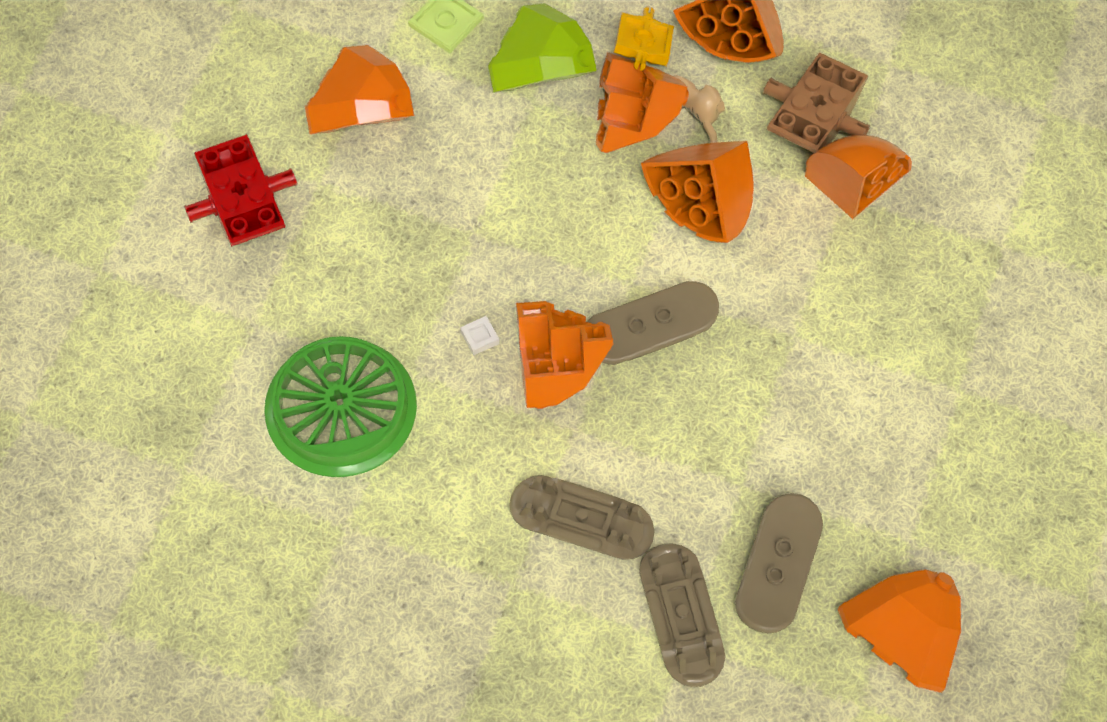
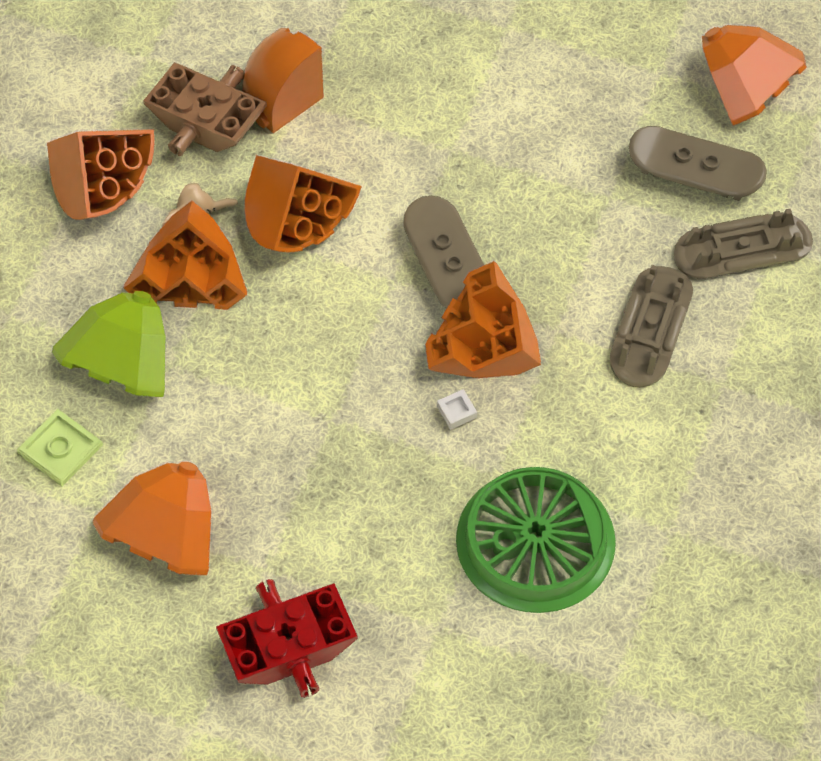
camera: 90 degrees left, 5 degrees down
(644, 39) = (109, 254): yellow plate -> none

